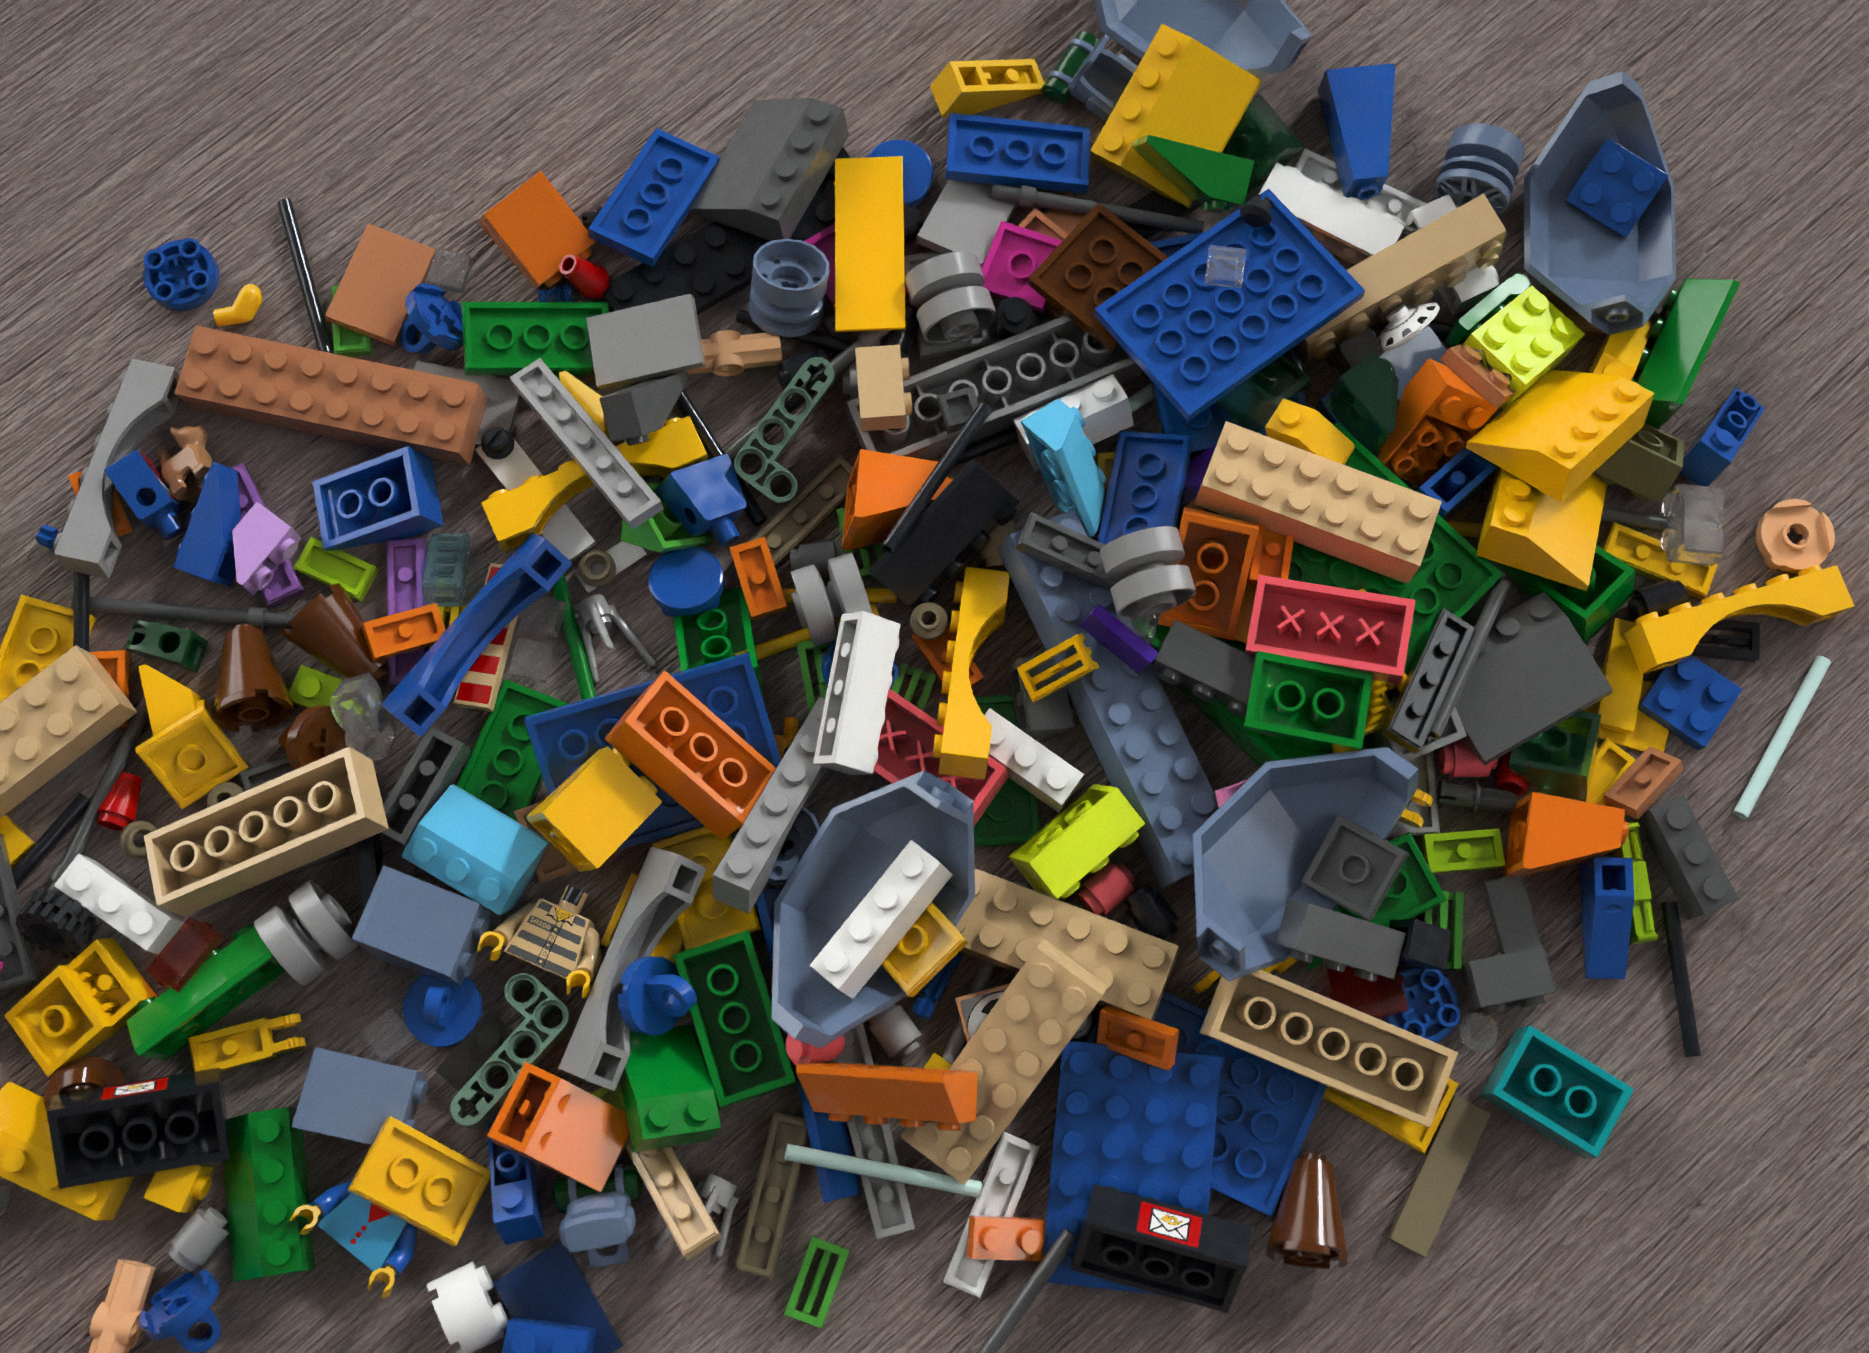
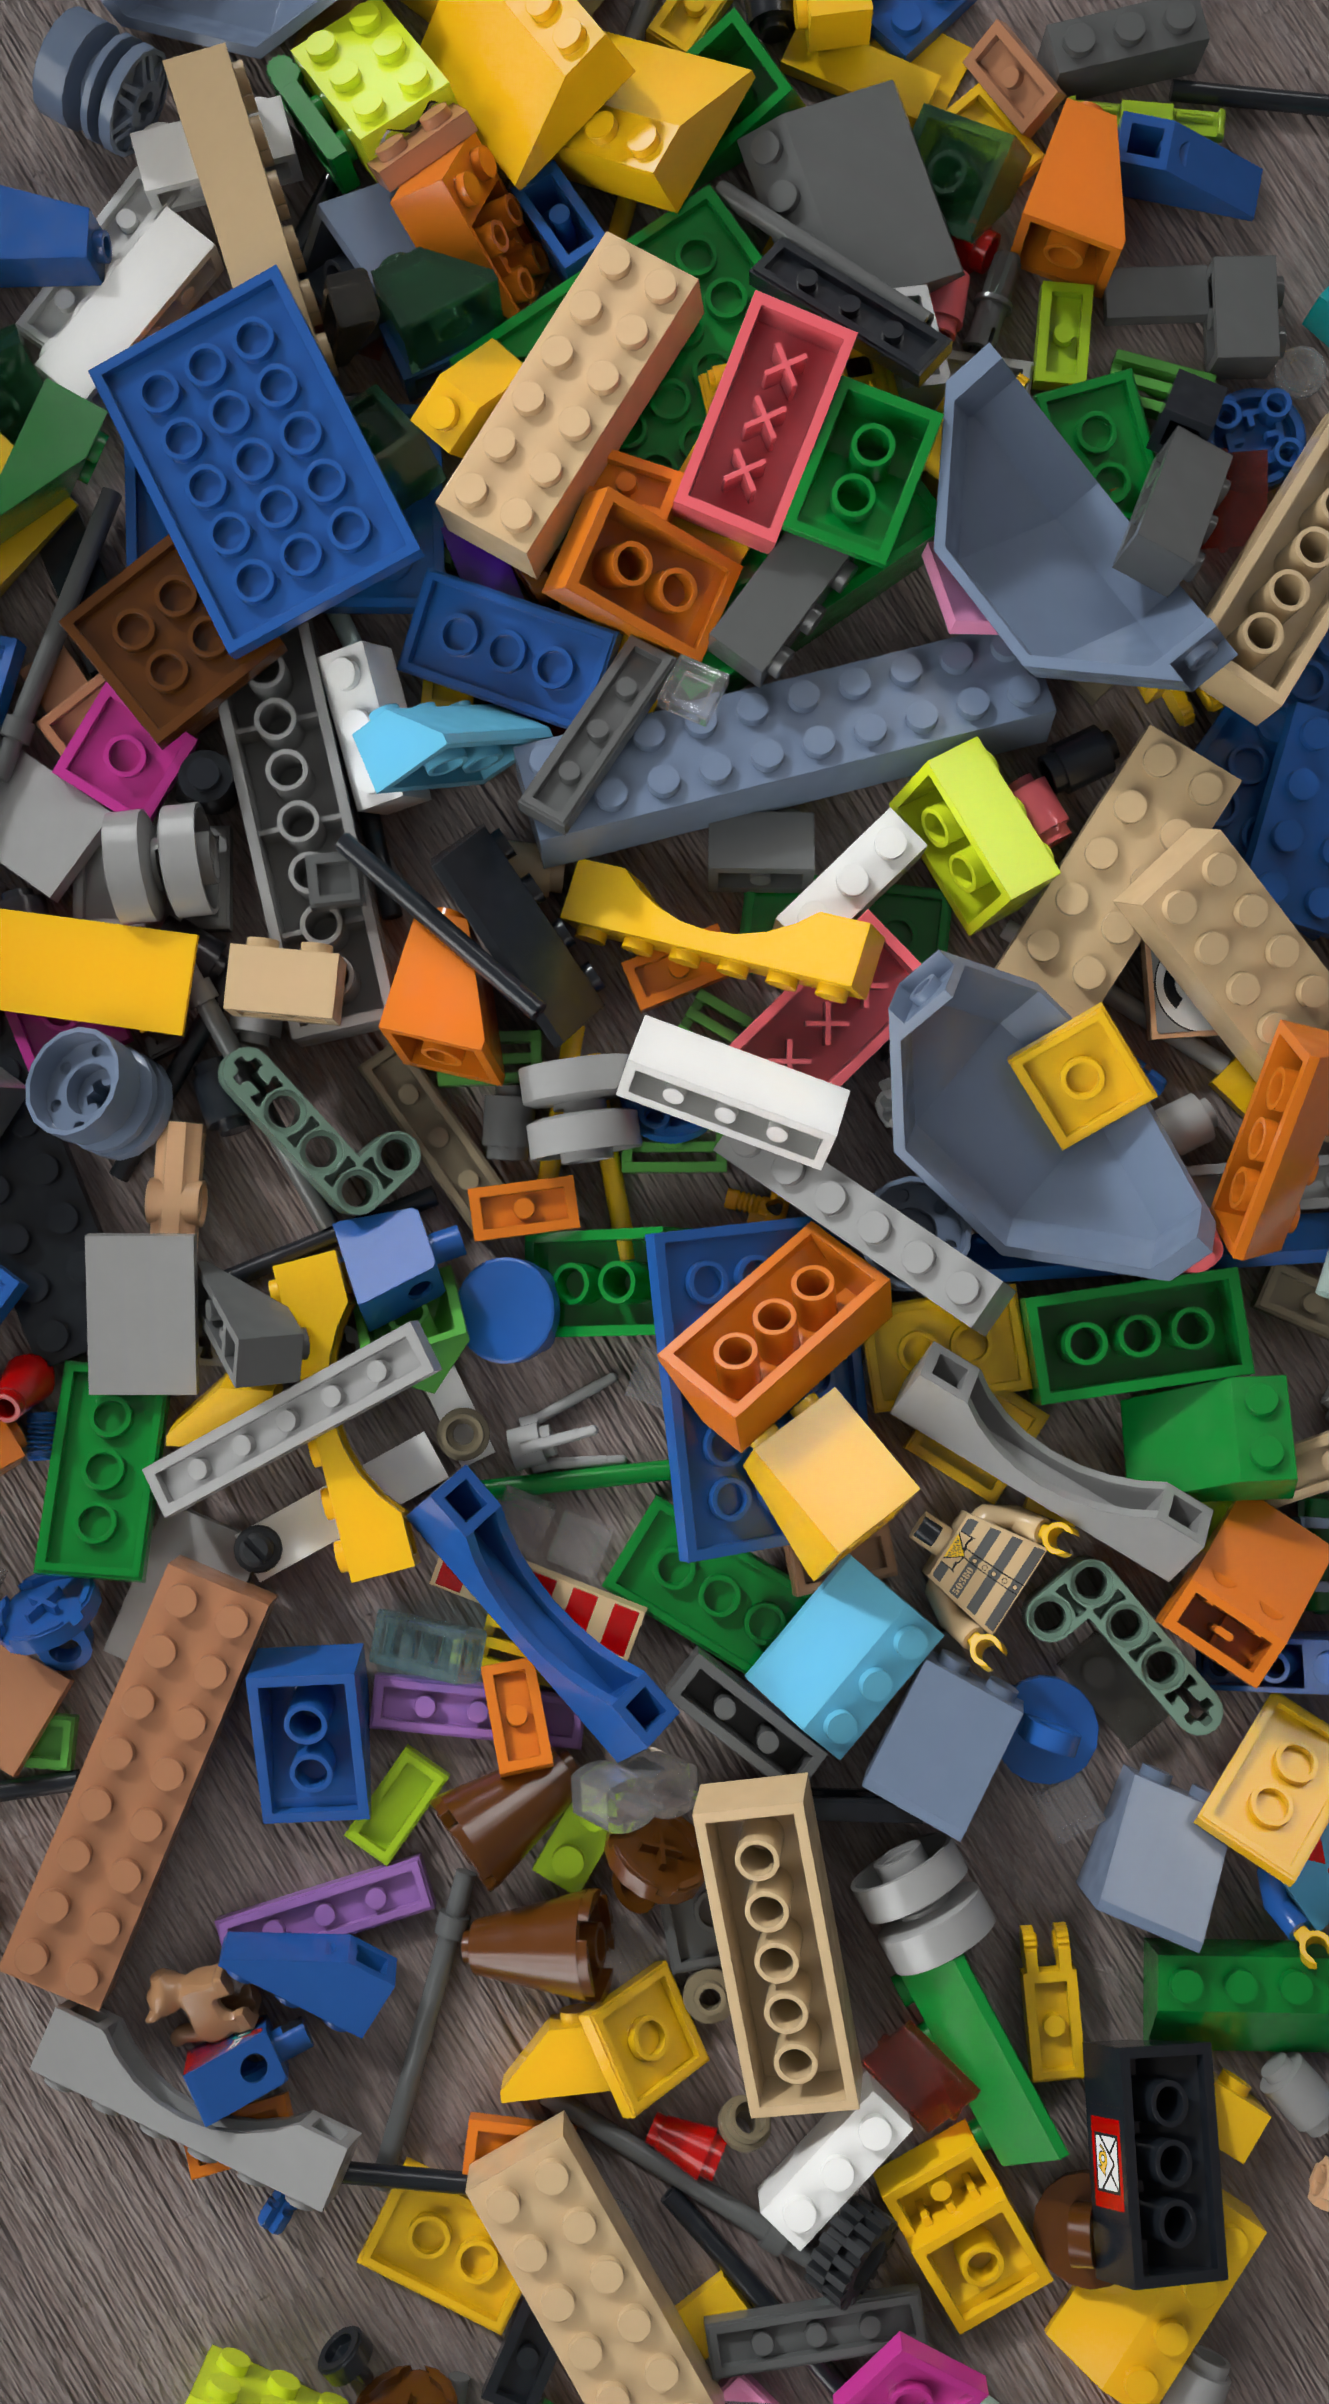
camera: 80 degrees left, 10 degrees up
(167, 644) = (470, 2059): dark green leg -> none
(260, 546) = (352, 1910): lavender slope -> none
(654, 996) = (1092, 1437): blue tile -> none
(881, 919) = (1057, 1112): white brick -> none
(932, 631) = (633, 998): dark tan plate -> none
(1083, 654) = (732, 770): yellow tile -> none
(1118, 639) = (721, 717): dark purple tile -> none
(1138, 1037) = (1261, 800): orange plate -> none
(1147, 572) = (657, 652): light grey wheel -> none
(1225, 266) = (202, 453): clear tile -> none
(1257, 211) = (125, 390): black piece -> none
(1354, 868) = (1083, 471): dark grey tile -> none
(1406, 324) = (327, 225): white dish -> none

